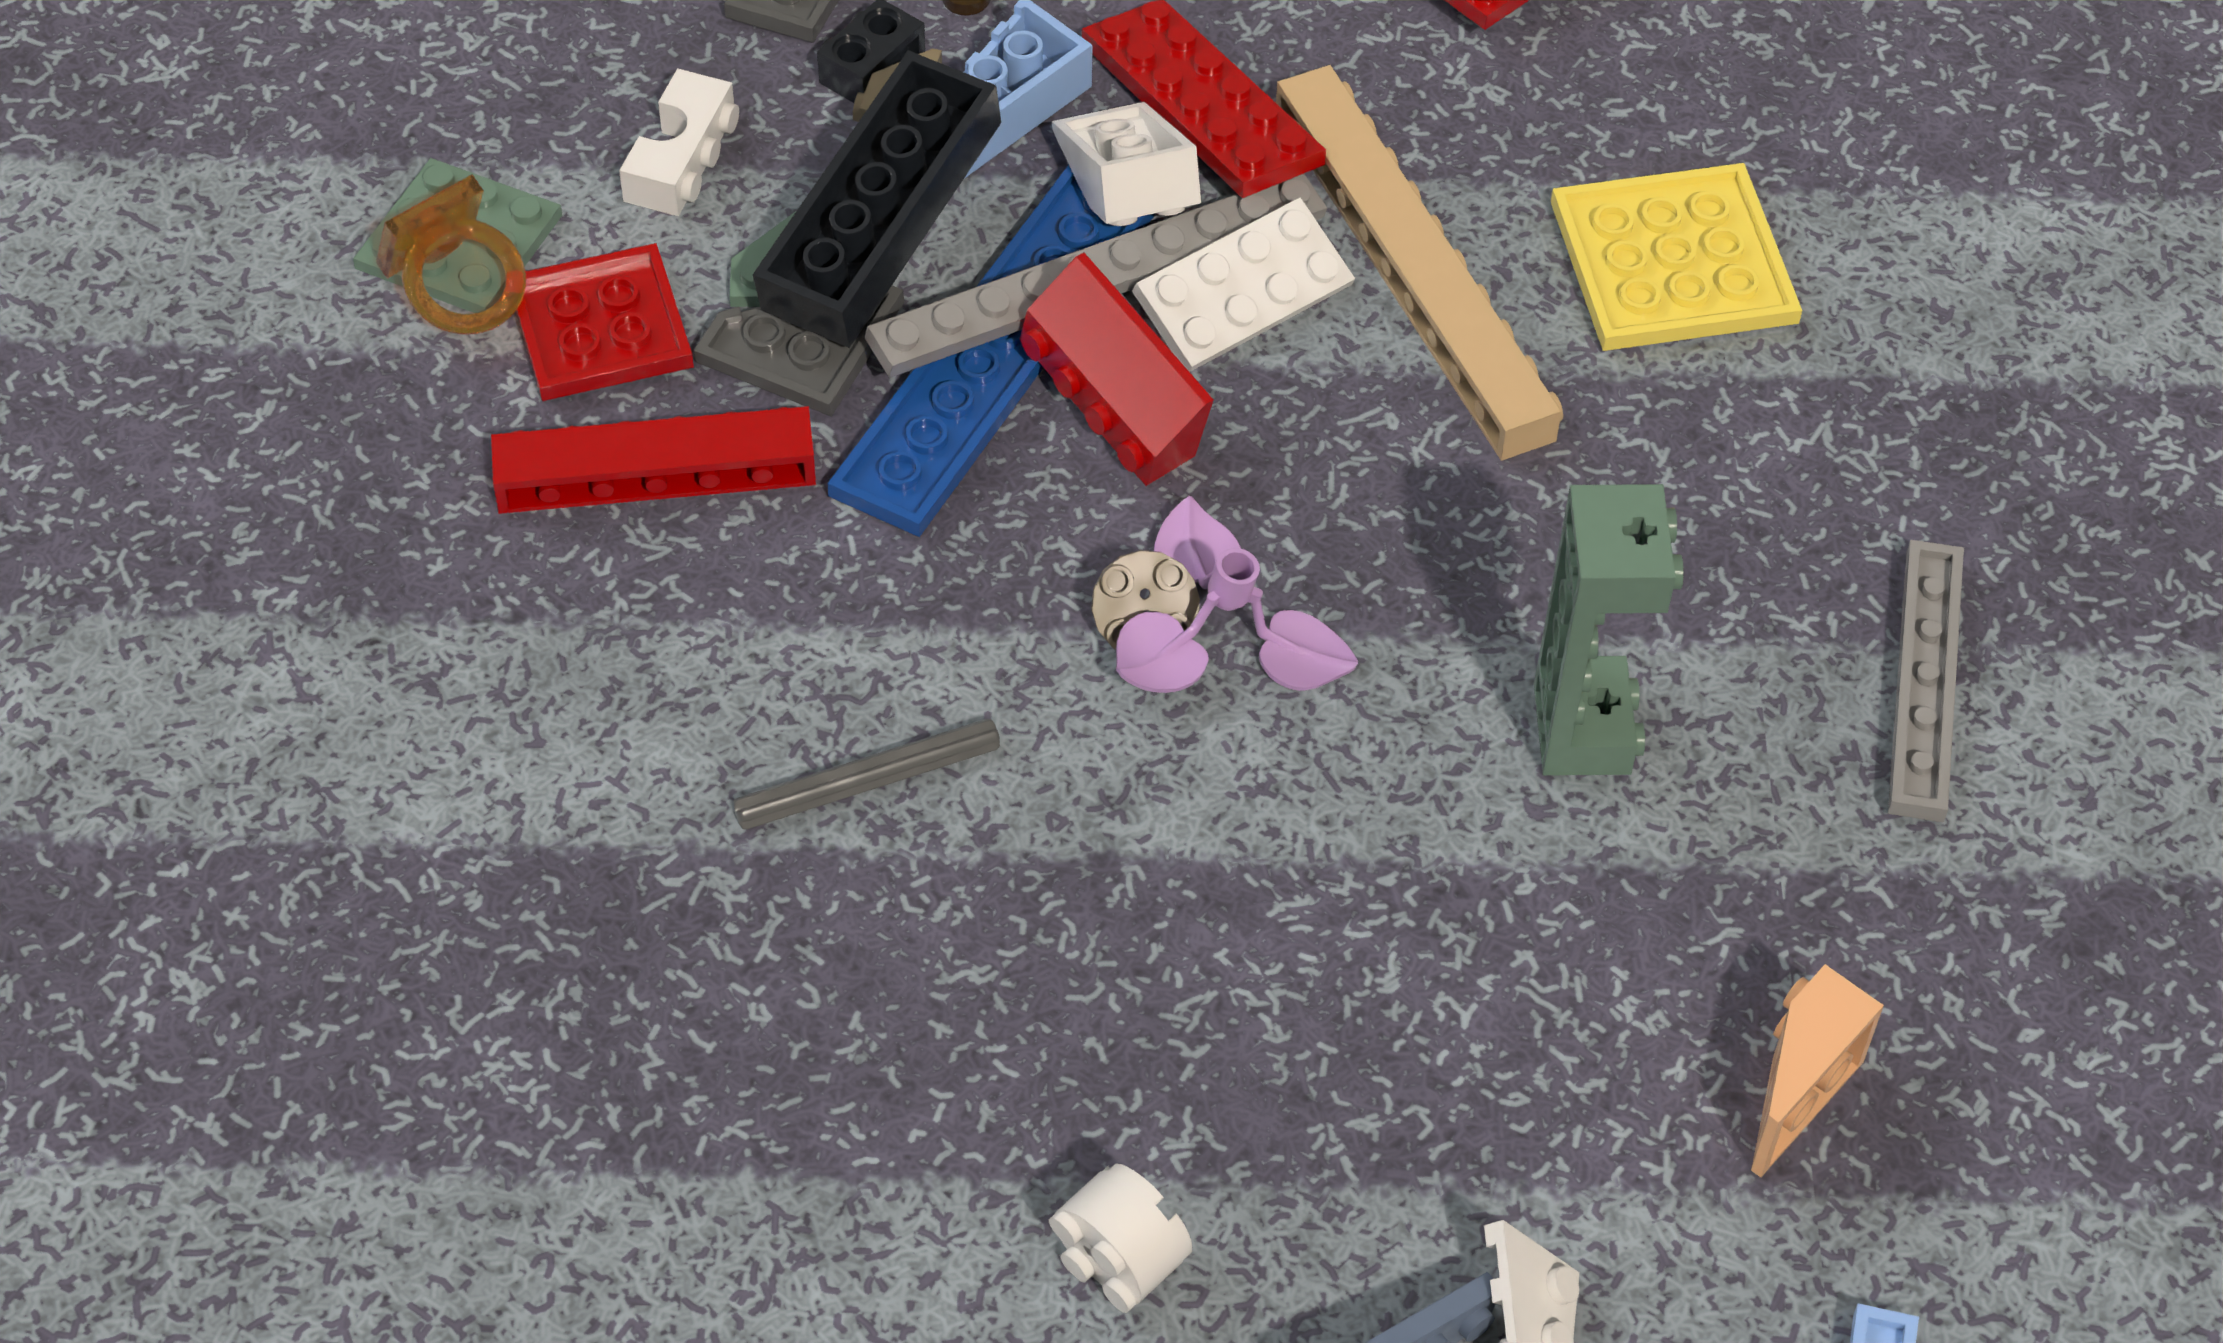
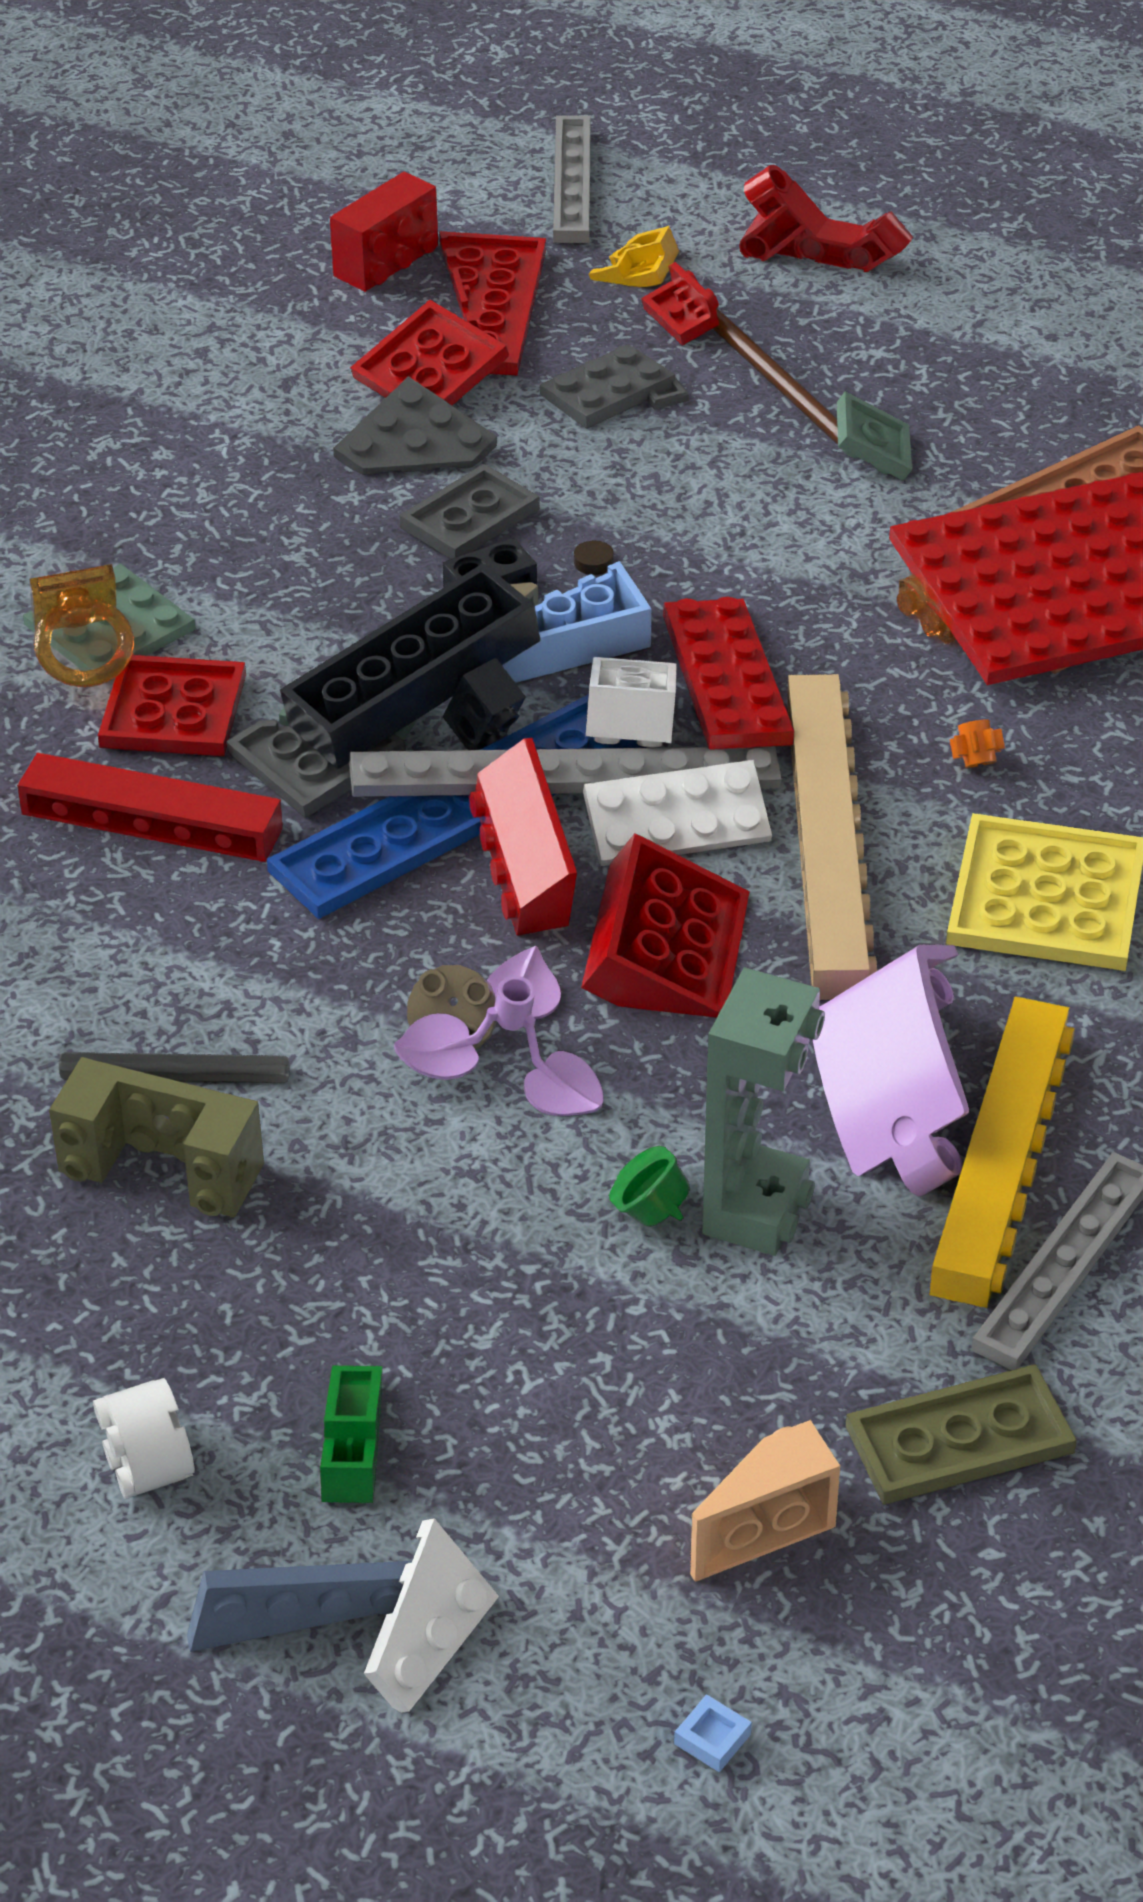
camera: 25 degrees right, 10 degrees down
(670, 171) = (286, 618): white arch -> none
(914, 843) = (205, 1129): none -> olive plate
(976, 222) = (484, 706): none -> black brick
(1311, 435) = (665, 933): none -> red slope
(1323, 1143) = (351, 1434): none -> green slope
(1470, 740) = (651, 1187): none -> green piece
(1512, 103) = (977, 743): none -> orange gear
(1718, 536) = (894, 1071): none -> lavender panel
(1801, 578) = (1000, 1154): none -> yellow brick
(1933, 913) = (960, 1434): none -> olive plate

